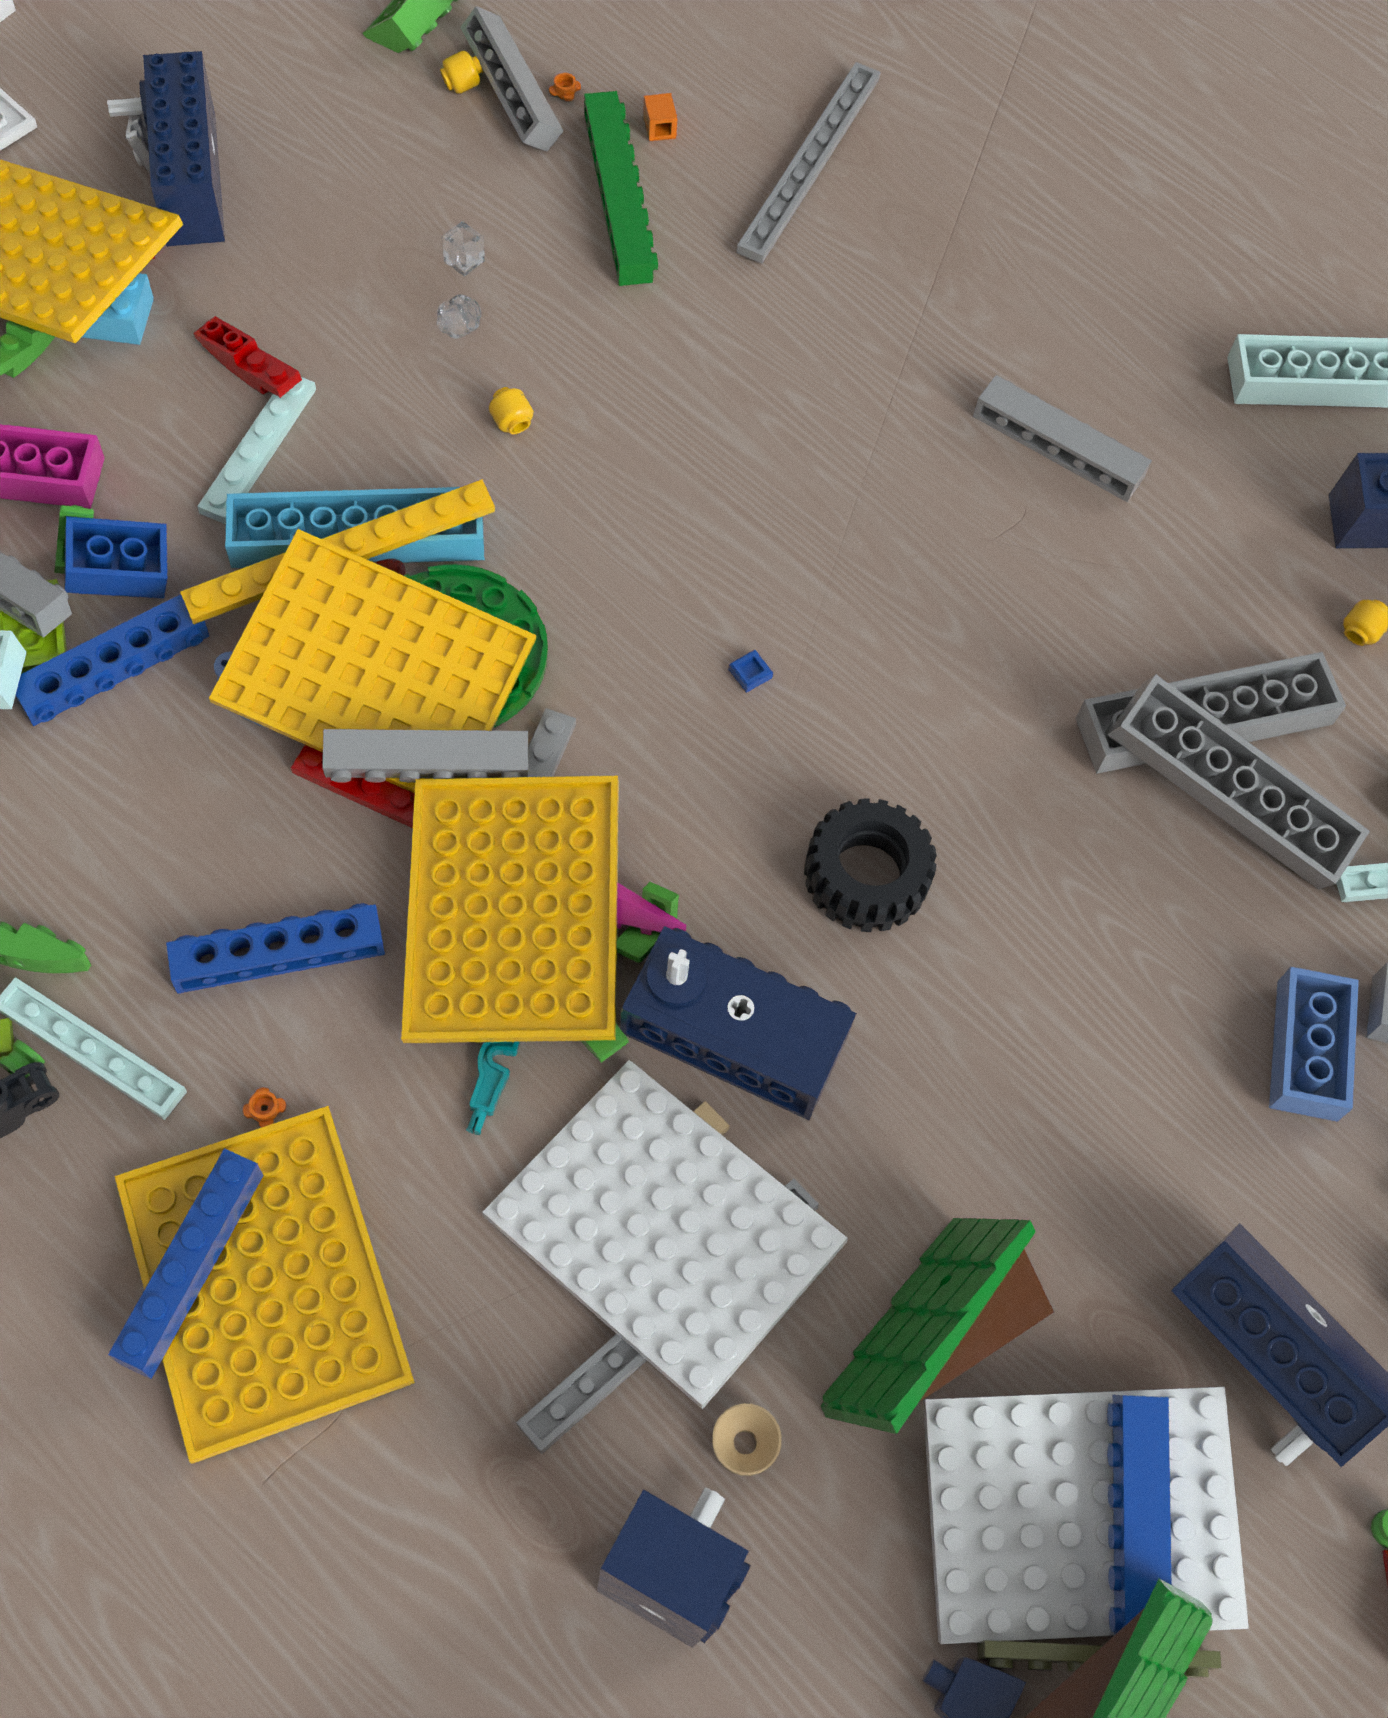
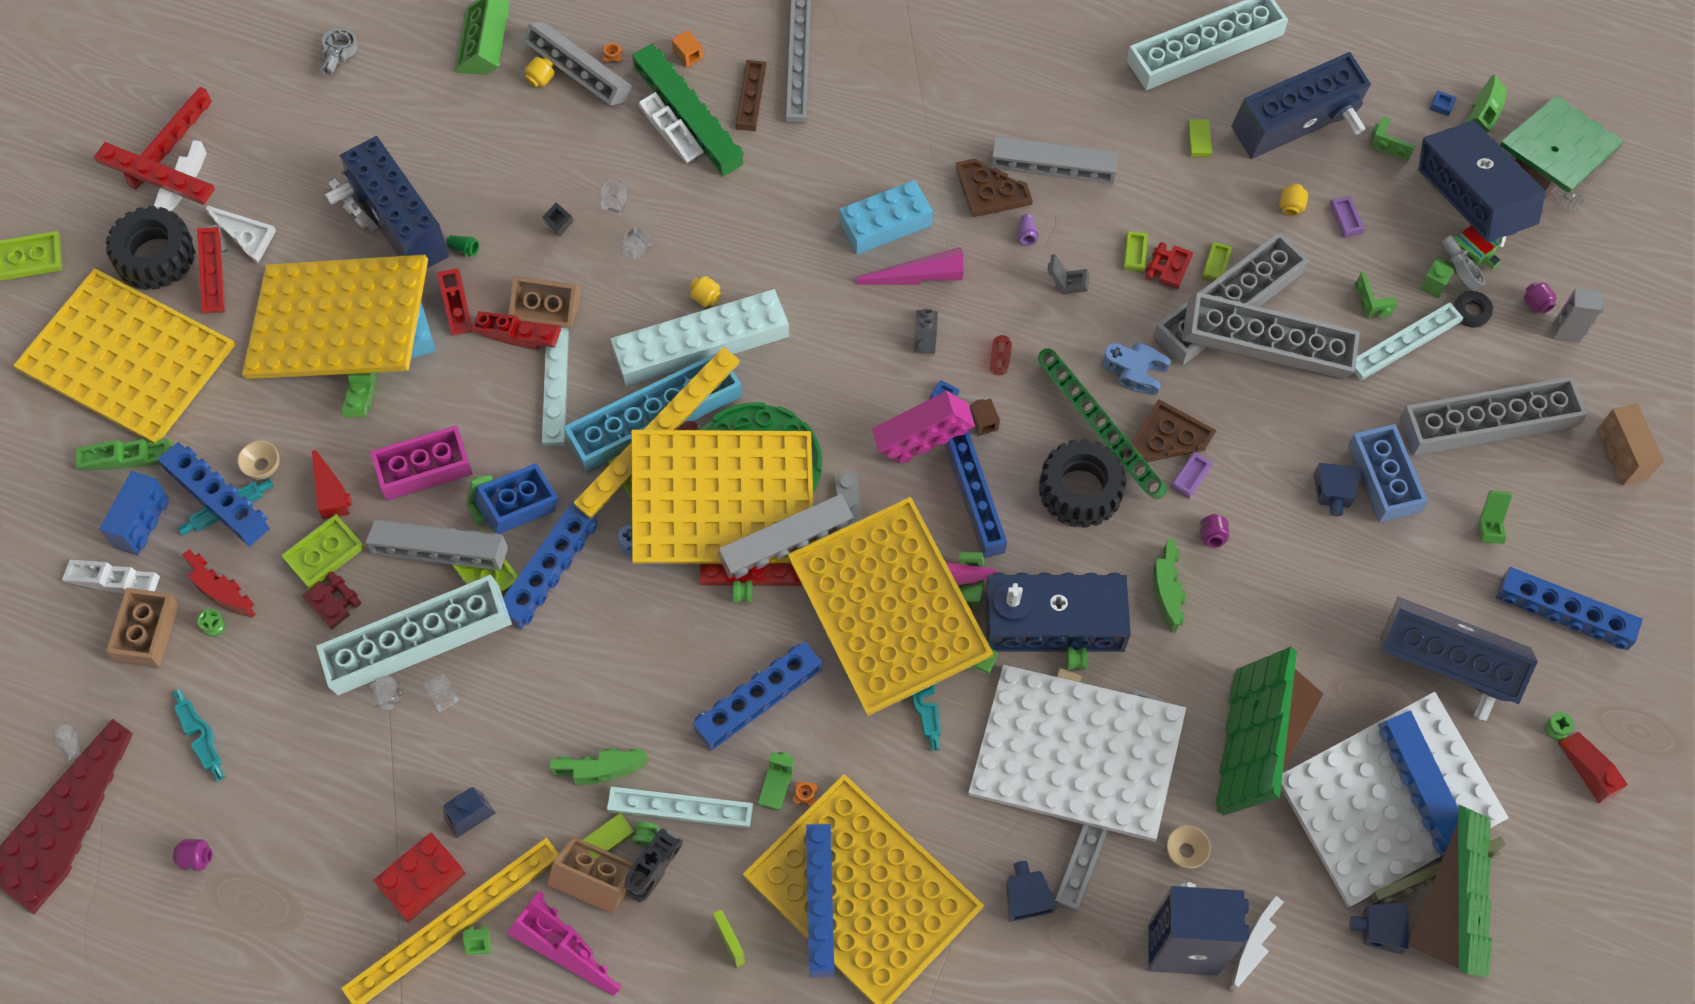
camera: 20 degrees left, 0 degrees up
(38, 1255) = (729, 938): none -> lime tile
(195, 290) = (455, 301): none -> red slope
(235, 1073) = (777, 780): none -> bright green bracket
(248, 233) = (463, 244): none -> green cone
(302, 337) = (544, 301): none -> medium nougat slope
(337, 804) = (742, 591): none -> bright green wheel
(377, 247) = (558, 219): none -> black brick
(483, 1394) = (1028, 894): none -> dark blue torso
(513, 465) = (694, 337): none -> light aqua brick
(585, 201) = (670, 128): none -> white slope
(687, 694) = (923, 427): none -> dark pink brick
(709, 204) = (751, 95): none -> reddish brown tile
(716, 812) = (976, 495): none -> blue brick
(734, 1098) = (1076, 658): none -> bright green wheel
(759, 1639) = (1252, 950): none -> white slope
(767, 579) = (925, 331): none -> dark grey bracket
(786, 721) = (984, 416): none -> reddish brown brick
(797, 416) = (885, 217): none -> medium azure brick
(831, 507) = (940, 266): none -> dark pink wedge
(848, 649) = (1005, 355): none -> clear red beam
(914, 1060) = (1167, 589): none -> bright green slope
(943, 810) = (1106, 431): none -> green beam
(956, 440) = (990, 189): none -> reddish brown plate
(976, 512) = (1027, 230): none -> medium lavender cone
(994, 596) = (1068, 281): none -> dark grey bracket
(1022, 1012) = (1214, 530): none -> magenta head
(1028, 741) = (1133, 364): none -> medium blue piece
(1028, 855) = (1170, 434): none -> reddish brown plate
(1032, 923) = (1191, 475): none -> medium lavender tile
(1111, 599) = (1135, 251): none -> lime tile
(1151, 643) = (1175, 268): none -> red plate
(1218, 656) = (1217, 261): none -> lime tile
(1231, 1029) = (1336, 486): none -> dark blue torso
(1277, 492) = (1200, 138): none -> lime tile

